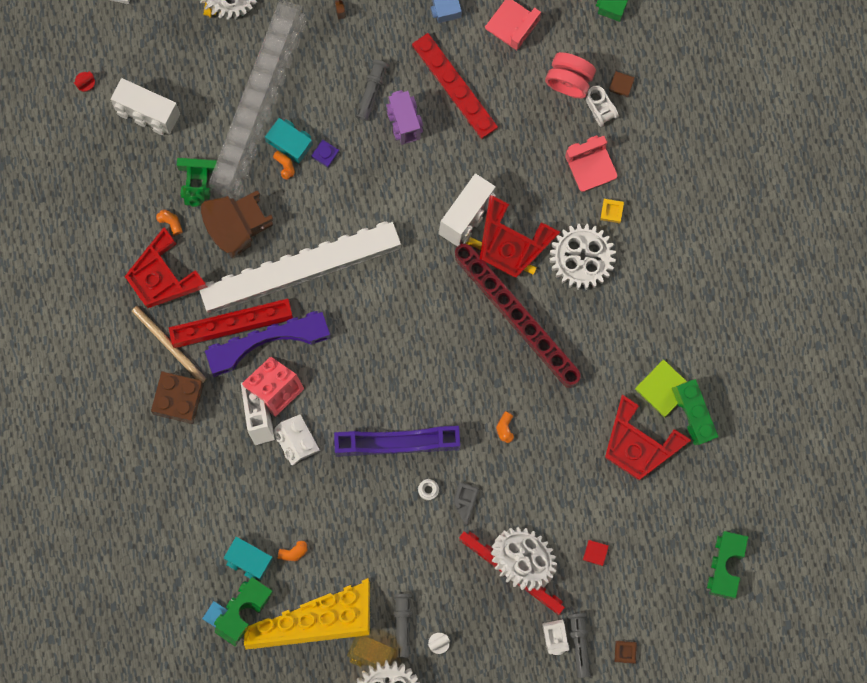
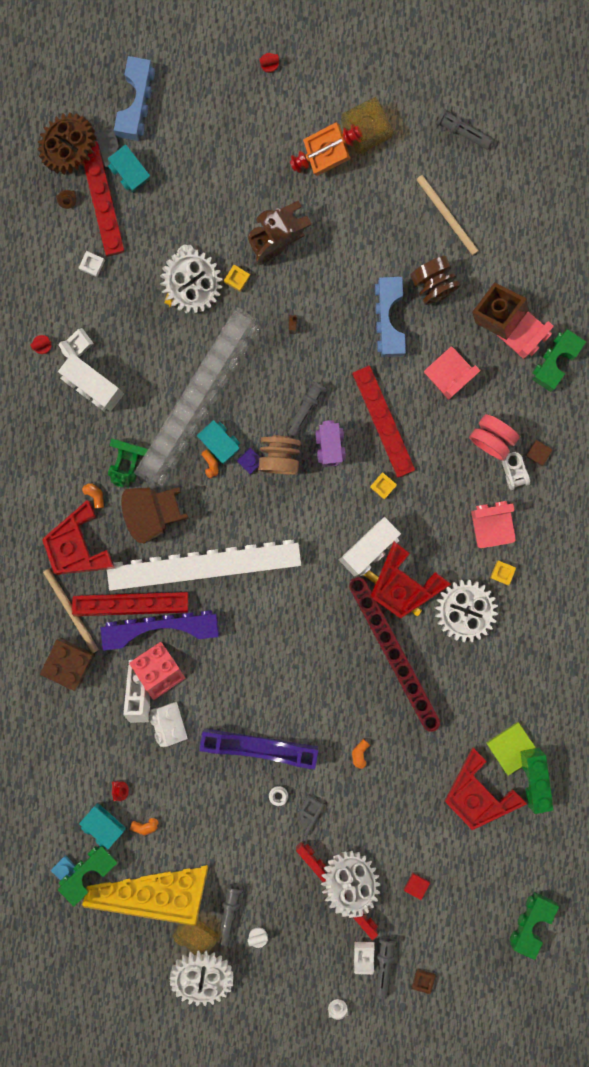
camera: 15 degrees right, 10 degrees up
(122, 69) = (76, 344): none -> white bracket
(258, 520) = (119, 790): none -> red plate
(354, 139) = (279, 455): none -> medium nougat wheel
(468, 149) = (383, 486): none -> yellow plate

